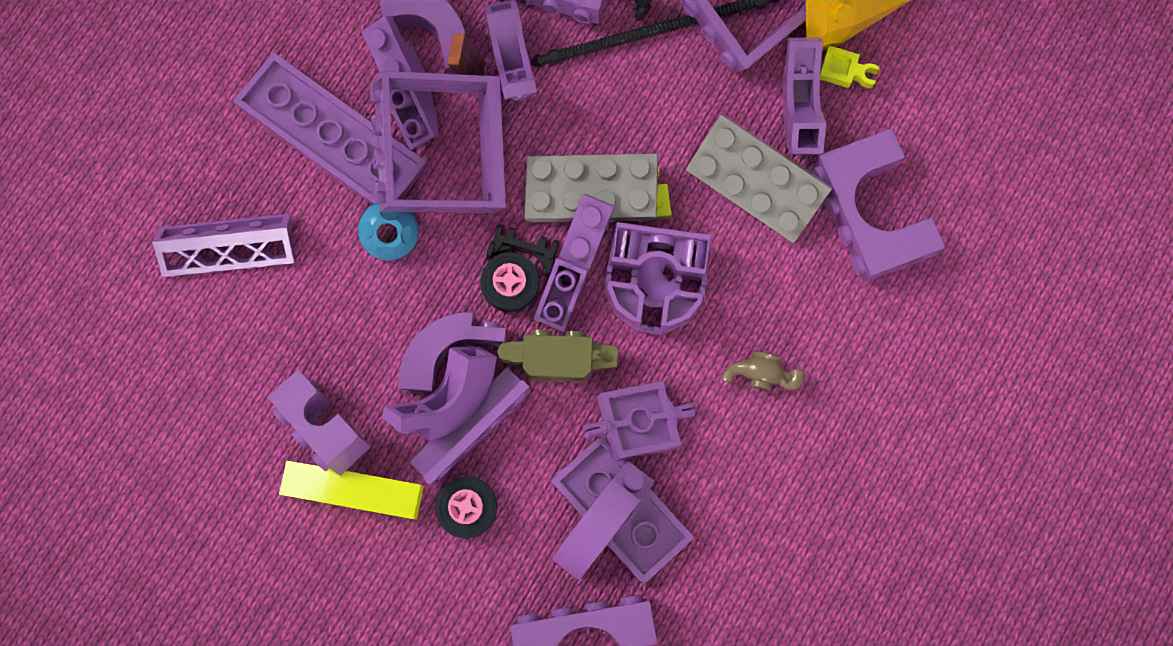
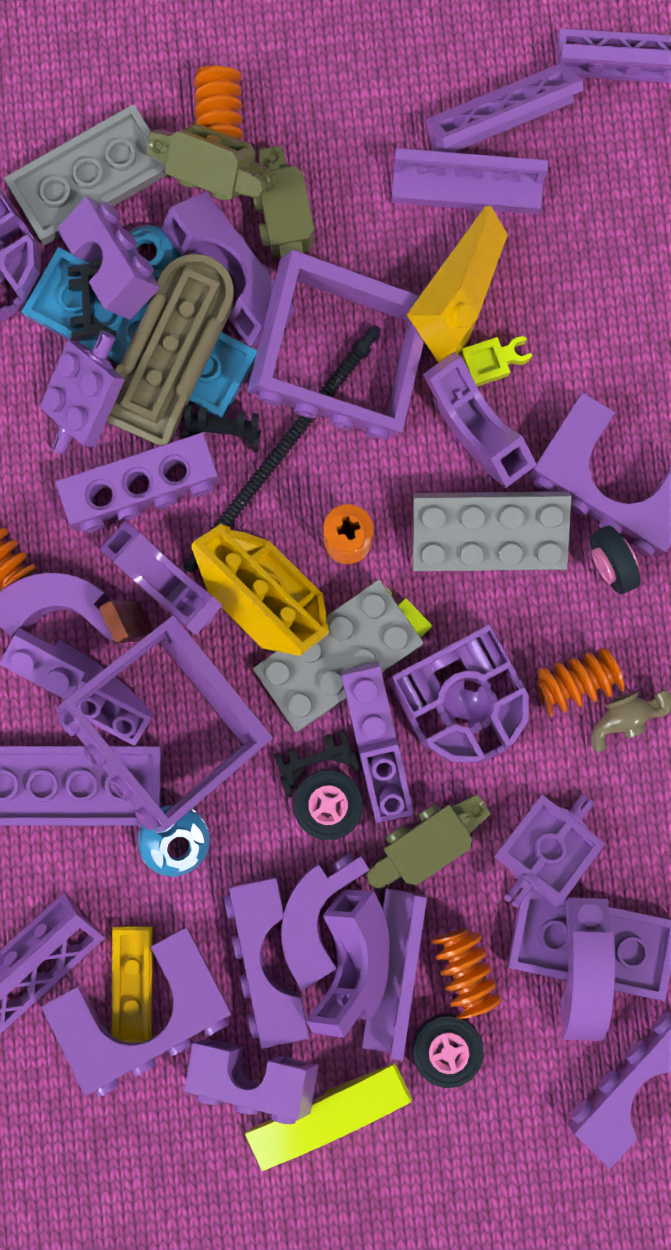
camera: 35 degrees left, 5 degrees up
(287, 309) = (132, 982): none -> yellow tile
(317, 349) = (101, 1058): none -> medium lavender arch
(406, 317) = (278, 1011): none -> medium lavender arch
(519, 460) = (467, 972): none -> orange piece
(571, 104) = (261, 590): none -> yellow wedge
(657, 109) = (358, 523): none -> orange piece
(745, 321) = (579, 680): none -> orange piece
(831, 256) = (615, 560): none -> black wheel

